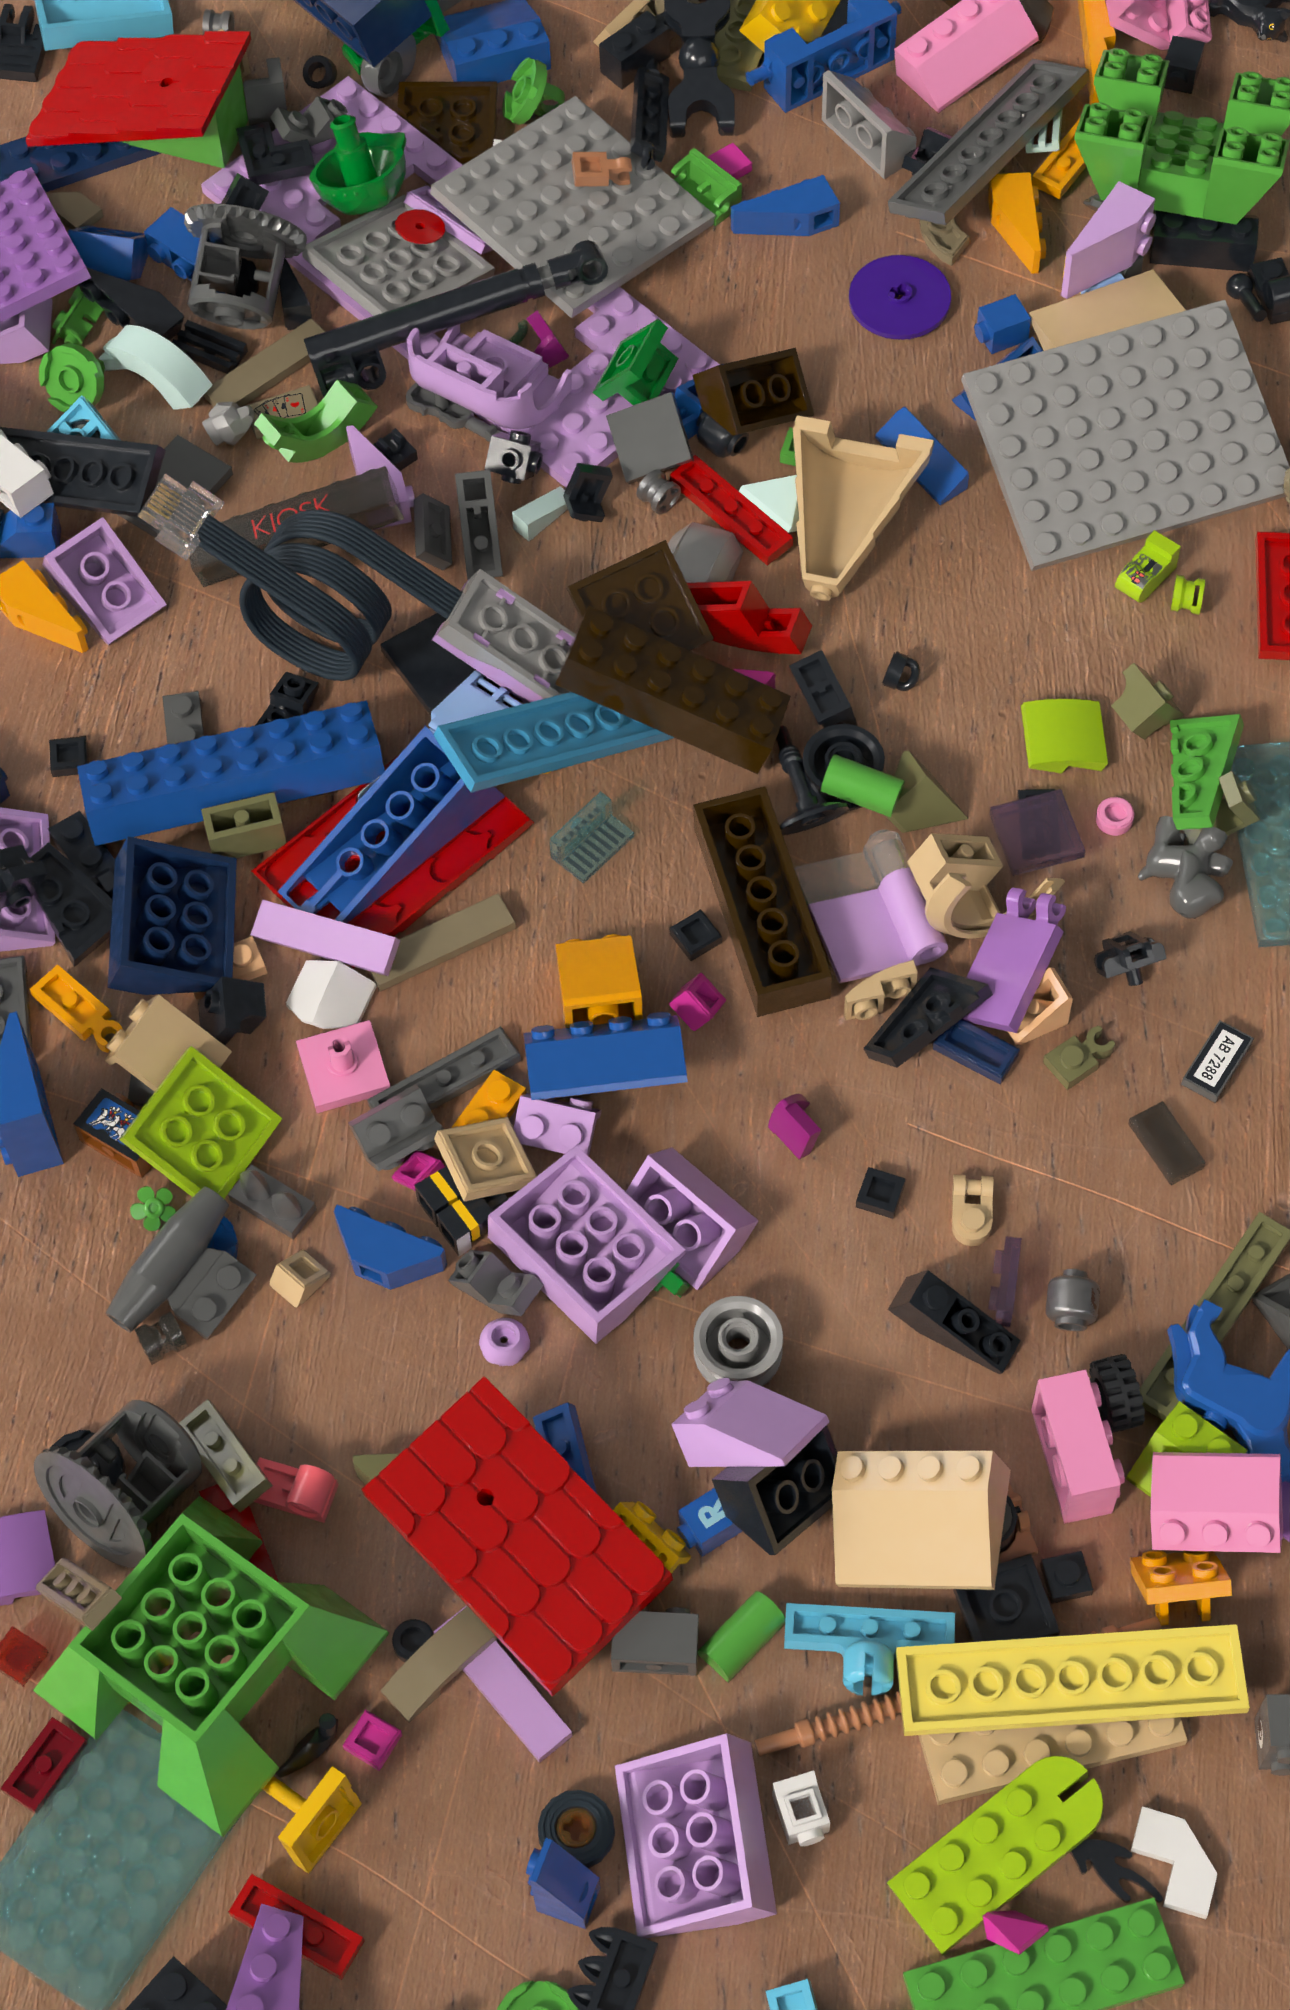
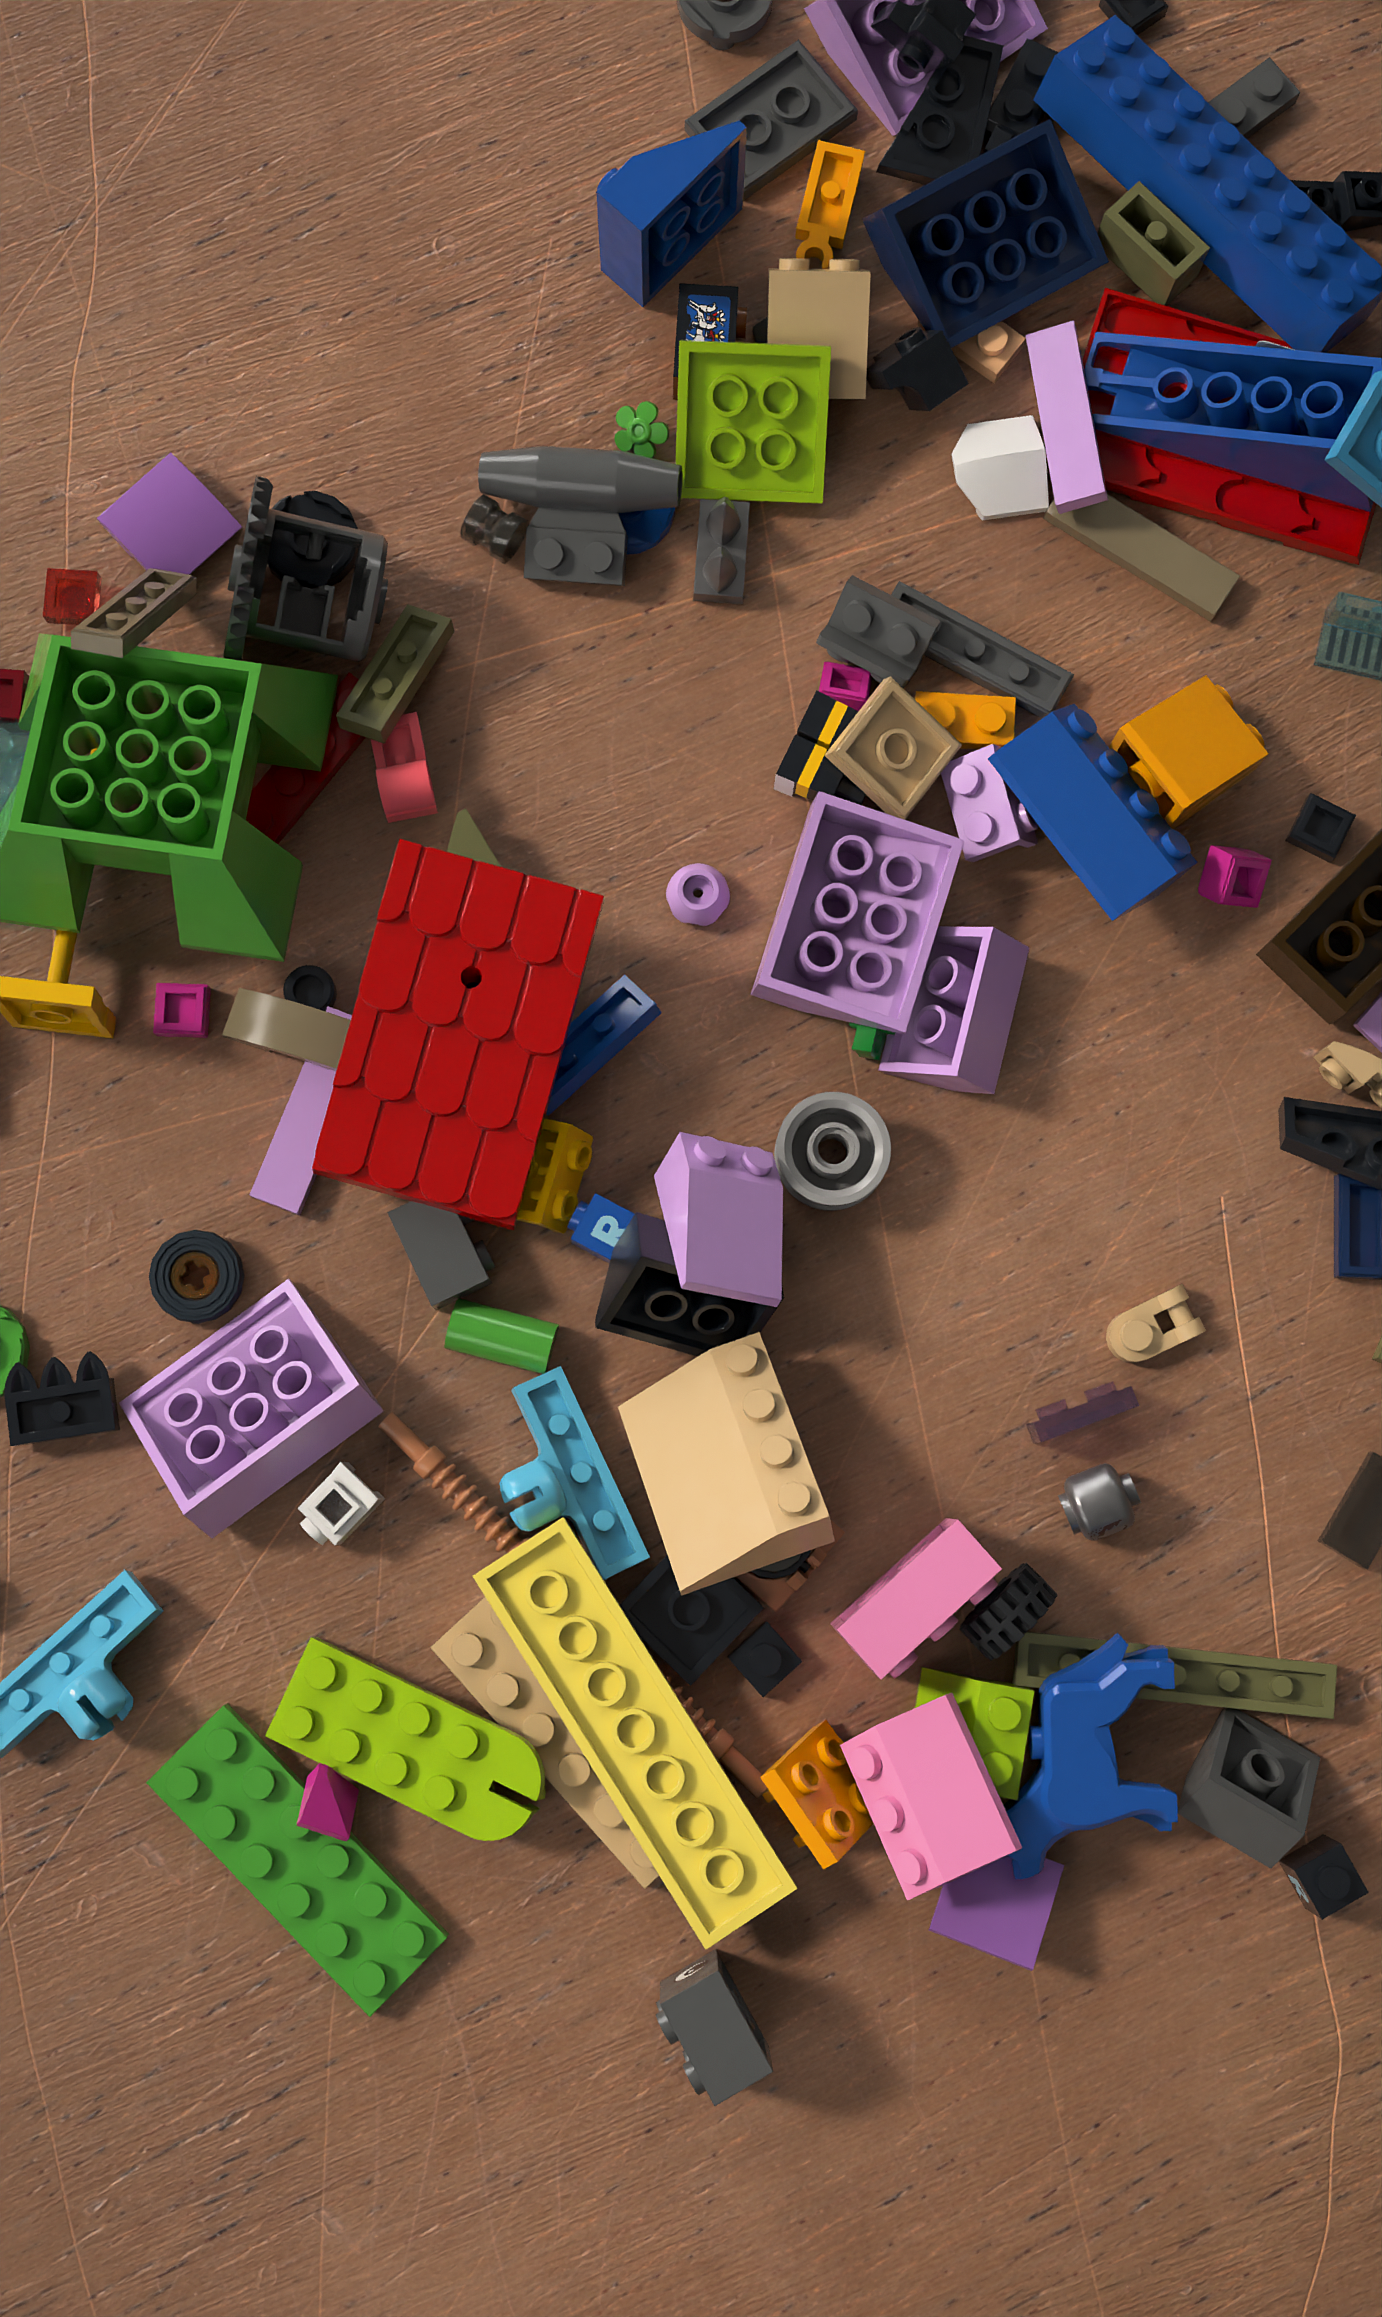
camera: 55 degrees right, 20 degrees up
(298, 1277) = (650, 632): tan slope -> none
(311, 1745) = (140, 951): black bar -> none
(343, 1066) = (926, 531): bright pink tile -> none
(386, 1251) = (727, 703): blue slope -> none
(493, 1284) = (759, 845): dark grey slope -> none
(562, 1884) = (108, 1297): blue slope -> none
(794, 1125) = (1138, 1070): magenta tile -> none
(880, 1192) = (1114, 1211): black tile -> none
(953, 1321) = (997, 1378): black slope -> none
(1102, 1857) = (465, 1857): black piece -> none
(1173, 1842) = (496, 1965): white tile -> none

